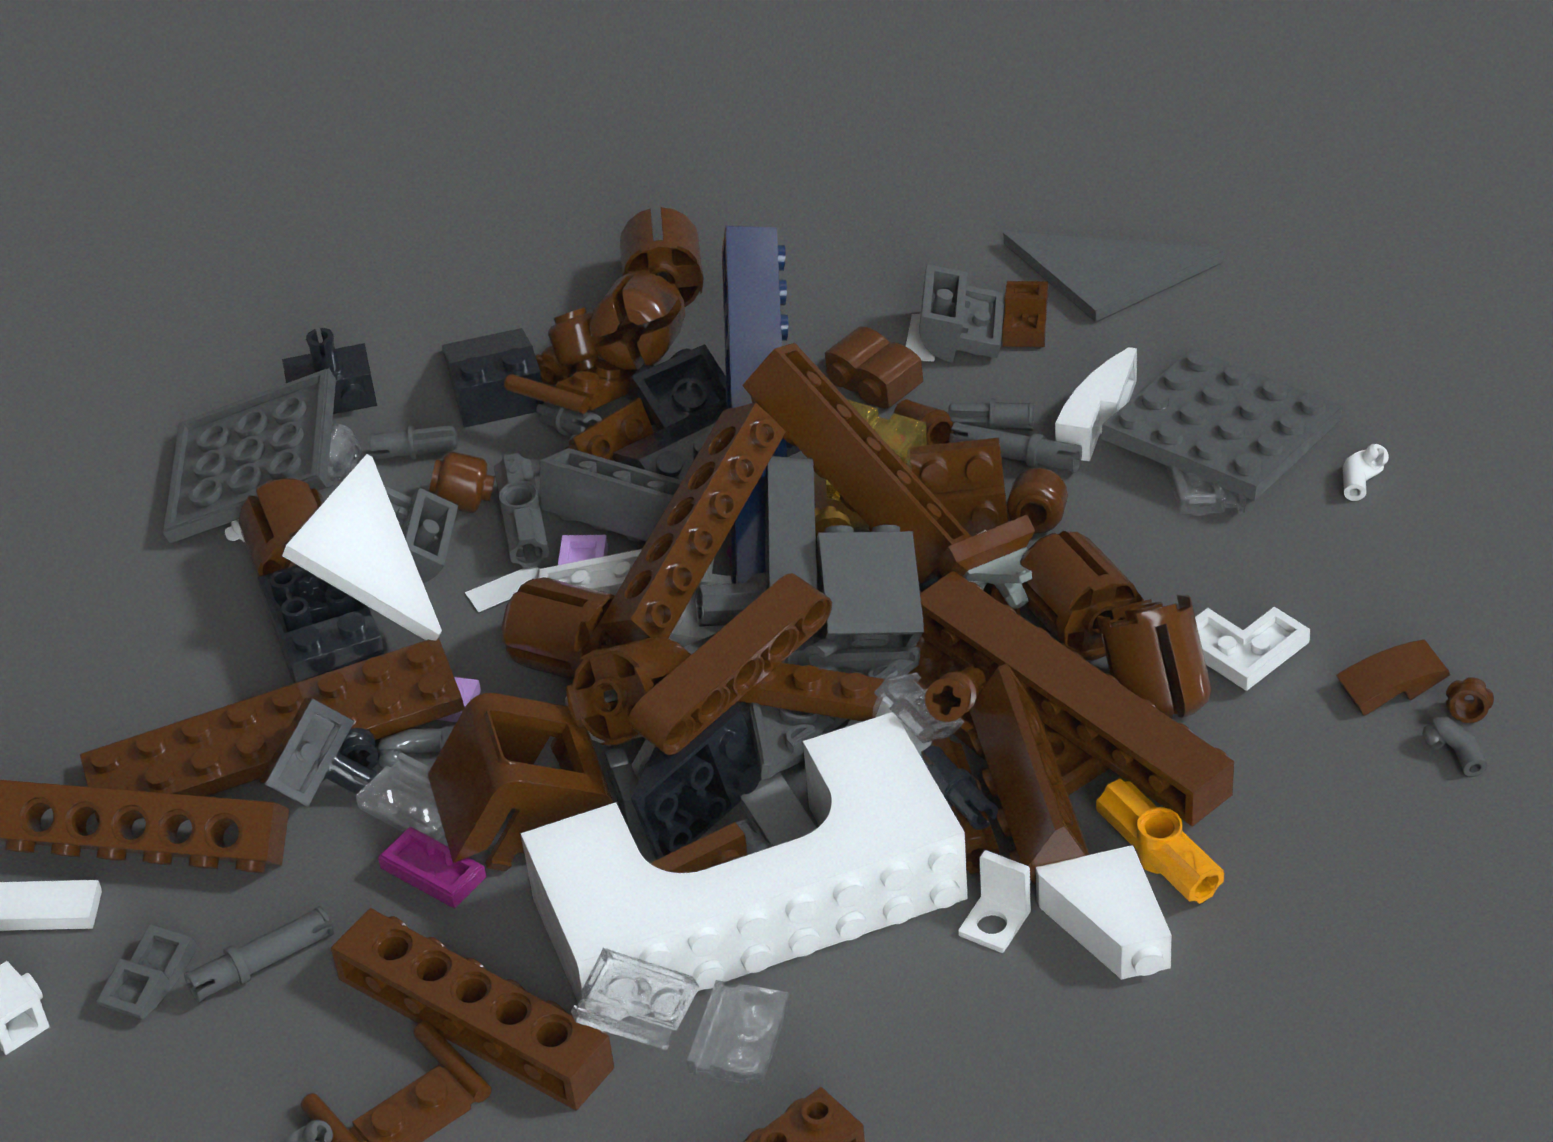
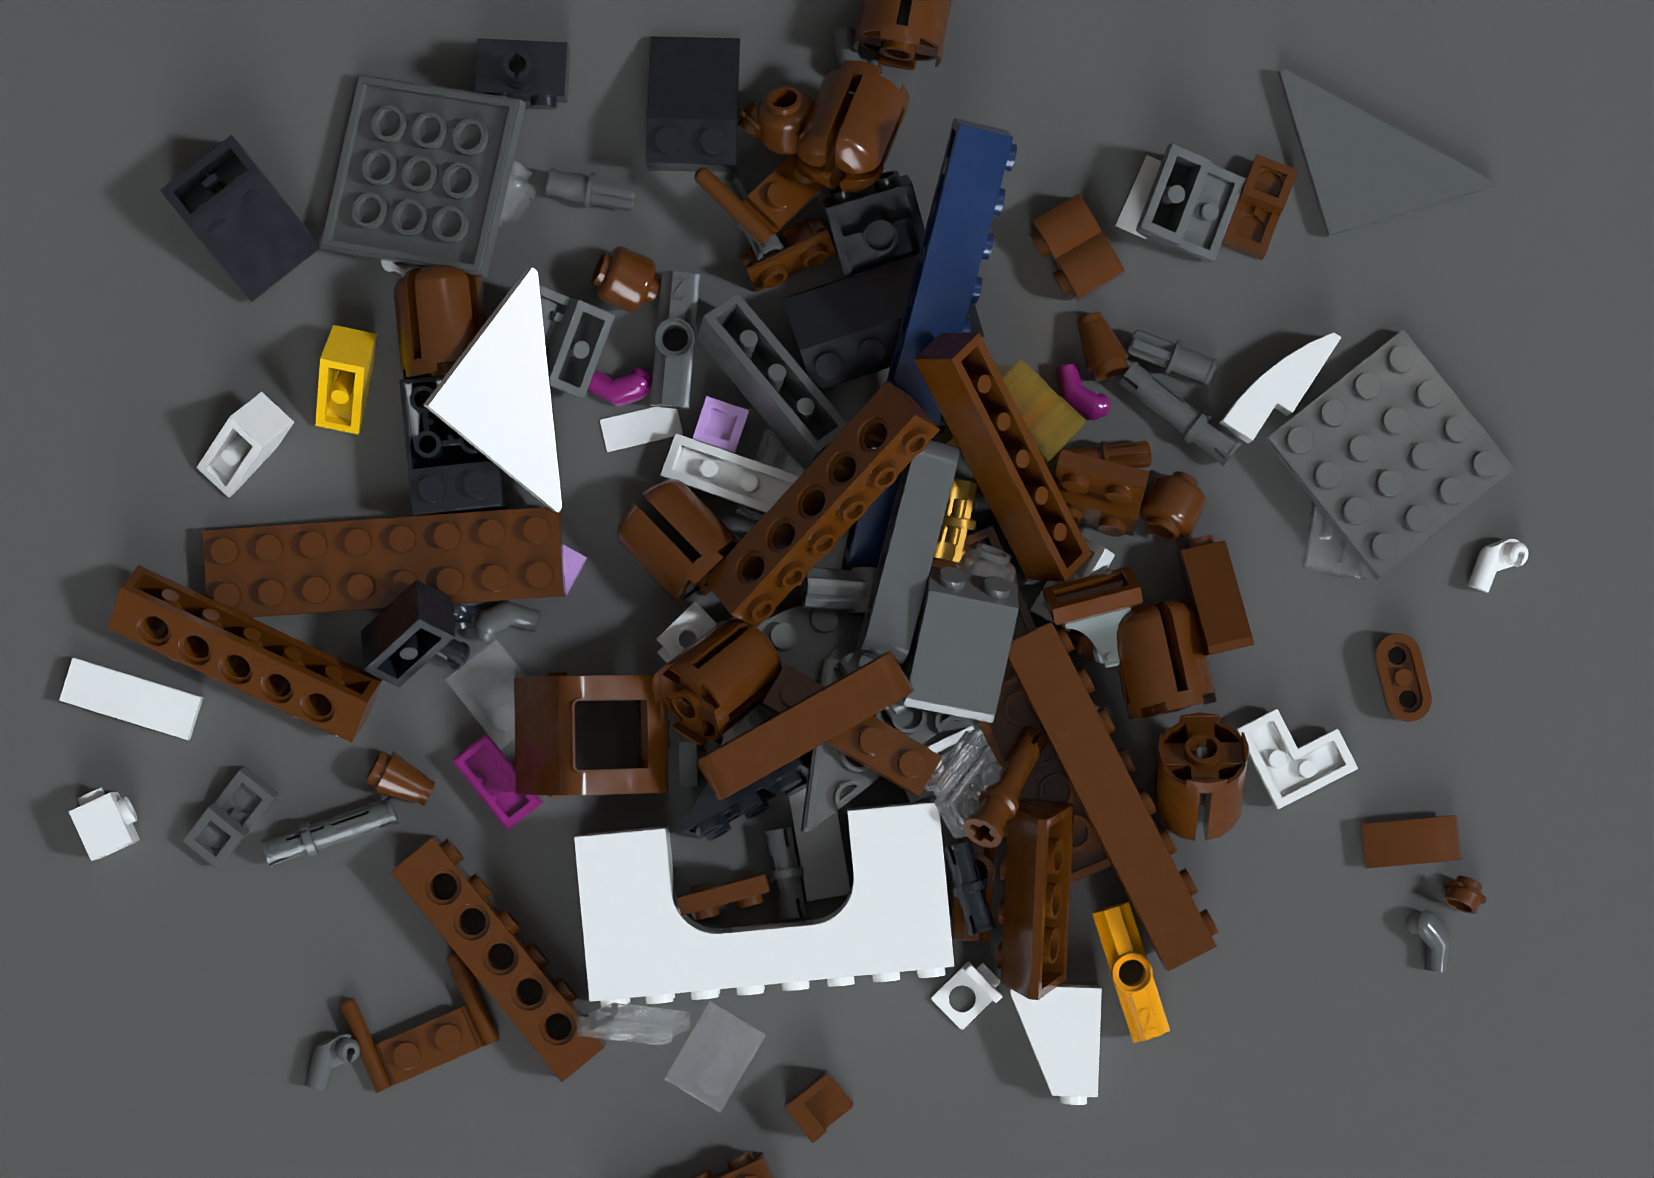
camera: 10 degrees right, 45 degrees up
(79, 524) = (241, 218): none -> black slope
(111, 678) = (244, 443): none -> white slope
(205, 612) = (345, 379): none -> yellow slope
(322, 887) = (399, 779): none -> reddish brown cone
(479, 560) = (624, 389): none -> magenta arm
(865, 1048) = (818, 1105): none -> reddish brown panel
(1120, 535) = (1214, 595): none -> reddish brown slope
(1318, 563) = (1406, 675): none -> reddish brown plate

